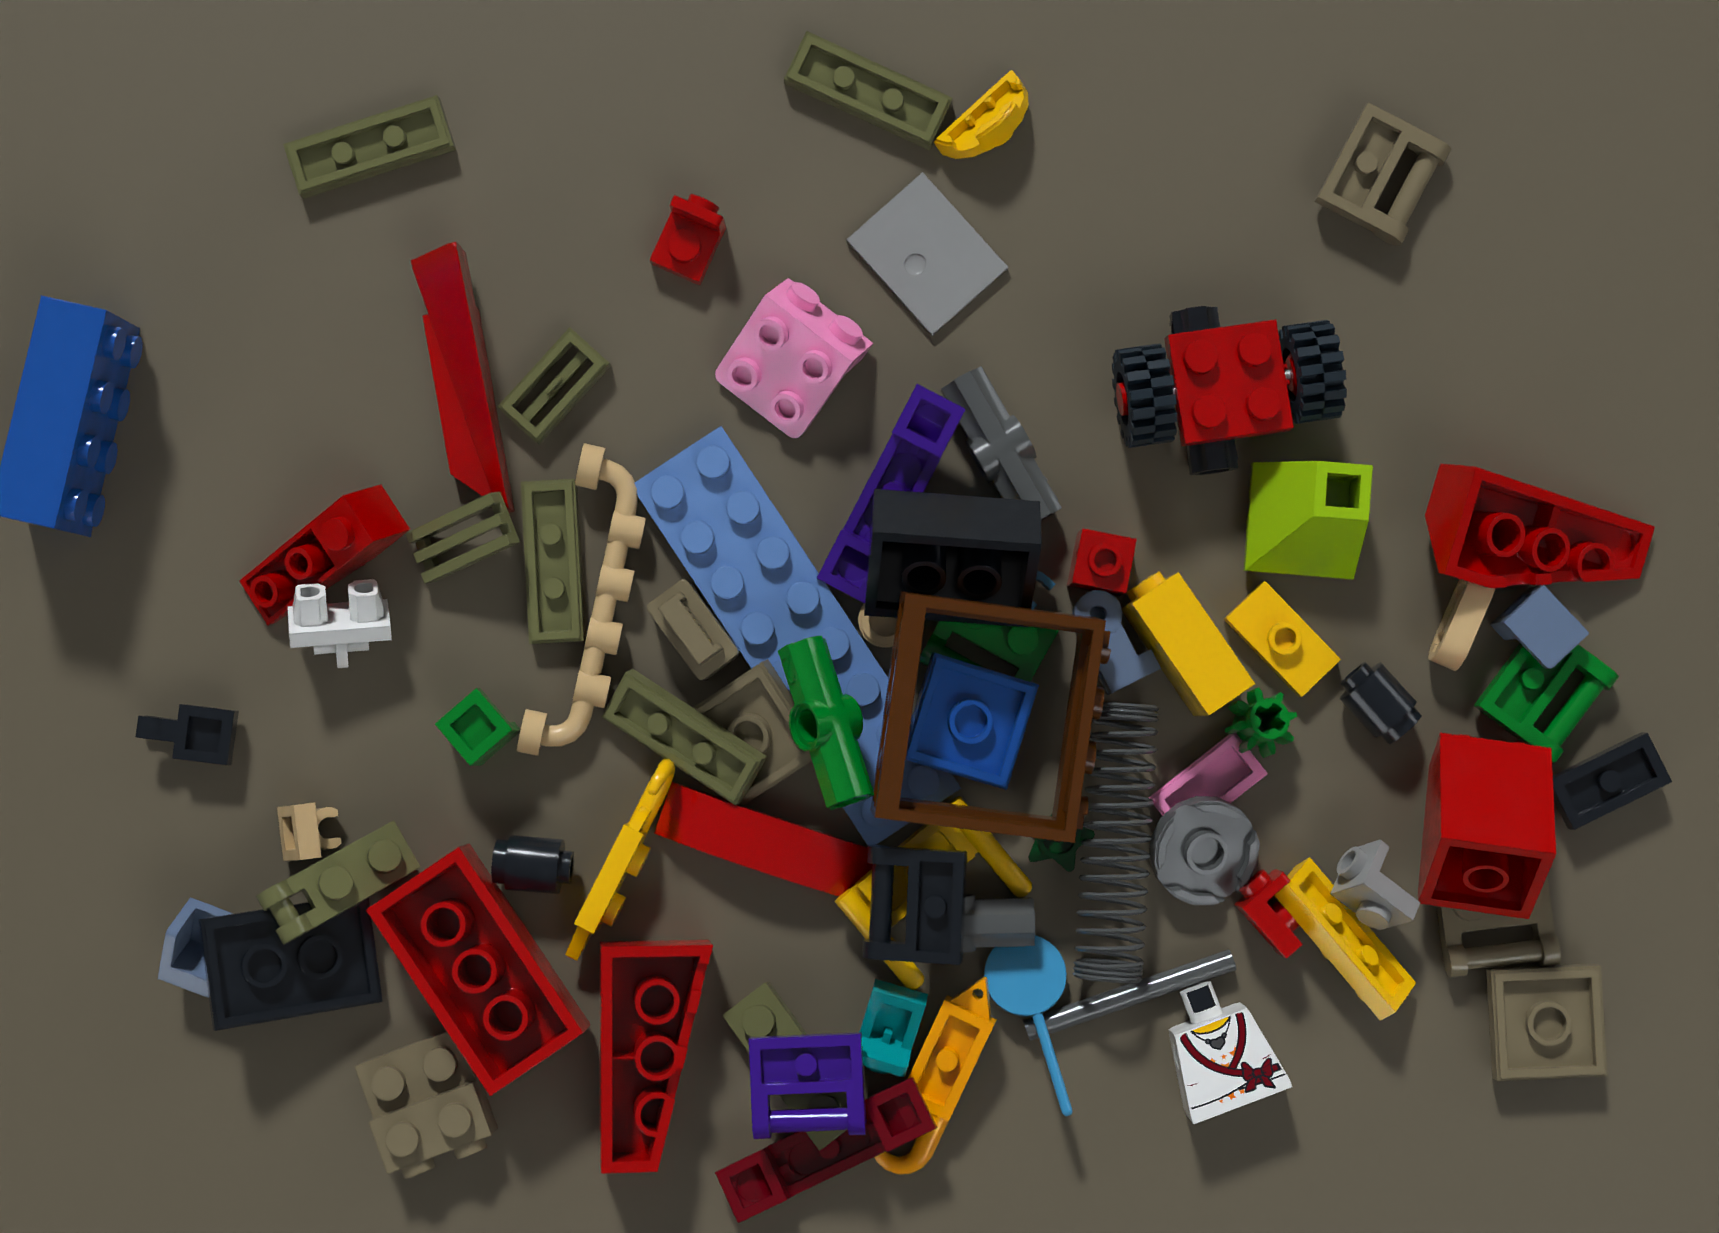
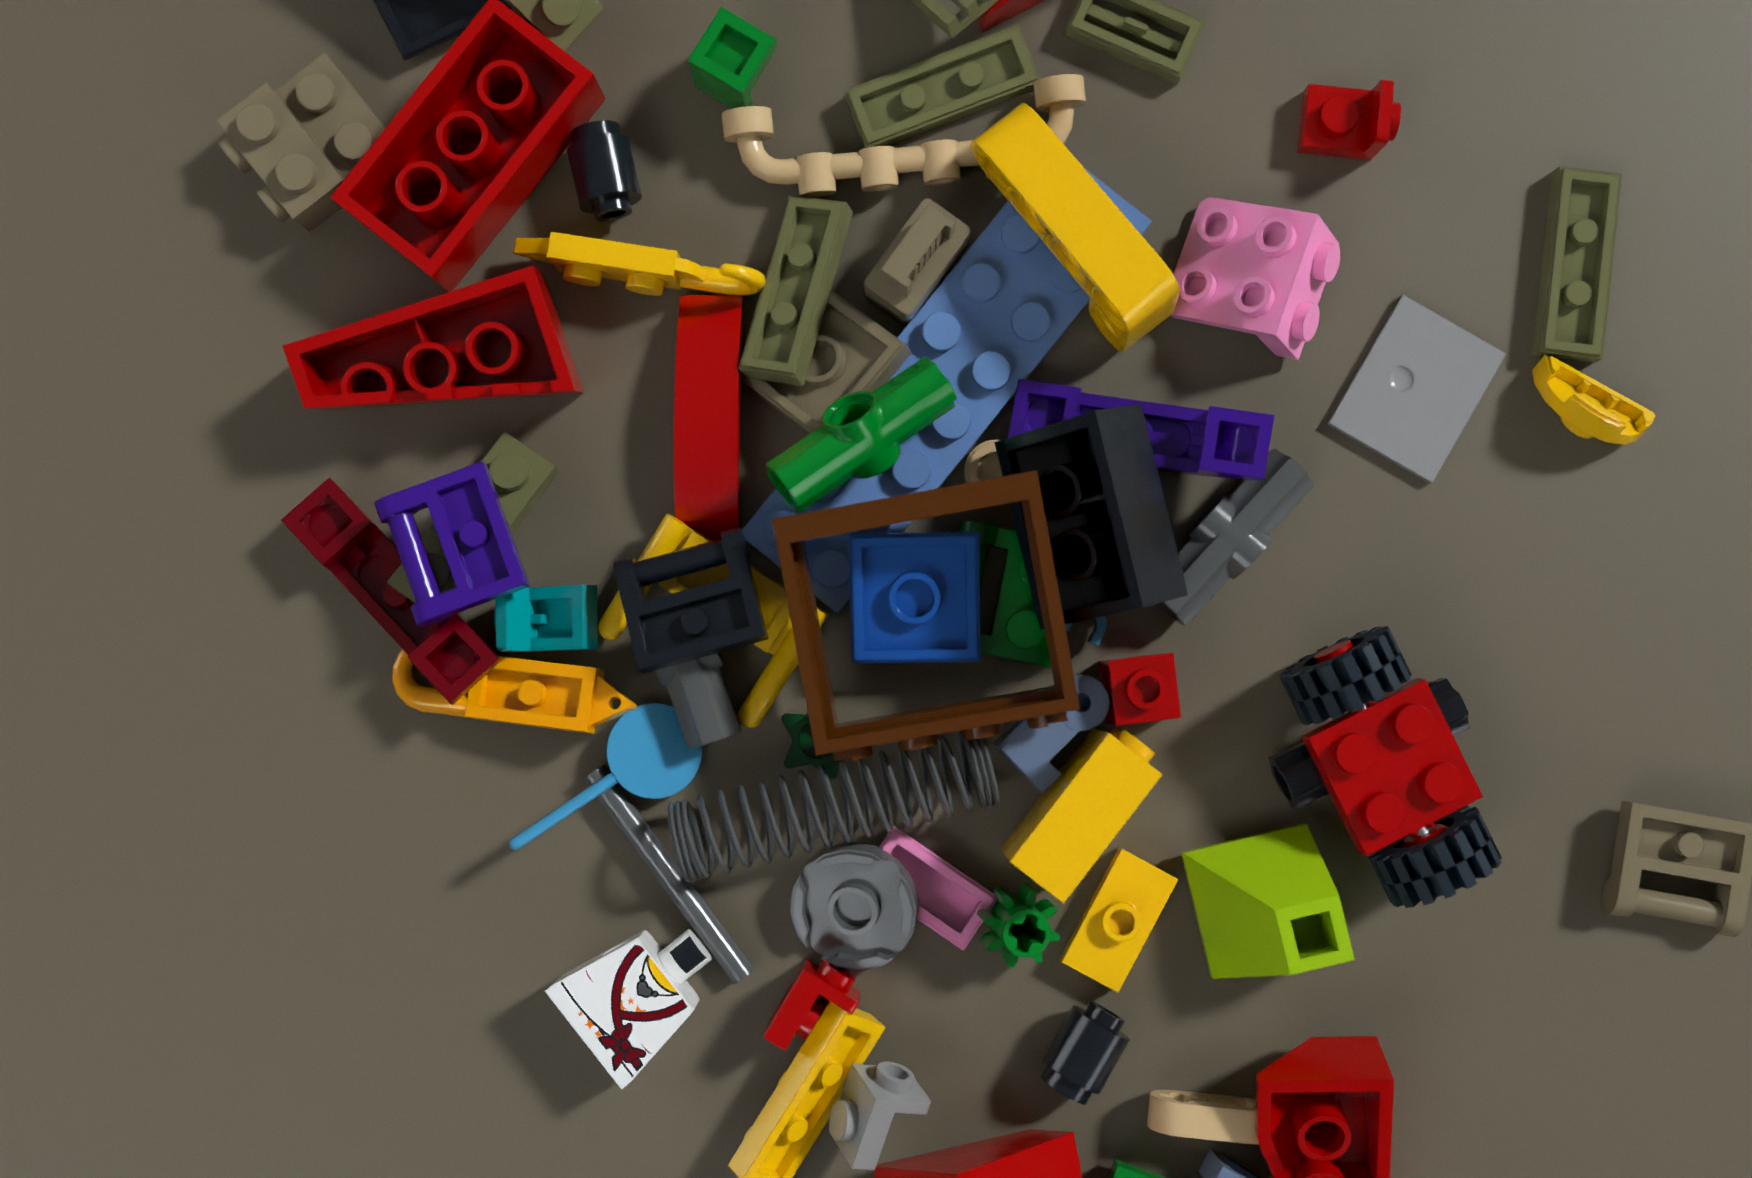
camera: 70 degrees right, 0 degrees up
(708, 491) = (1080, 225): none -> yellow beam

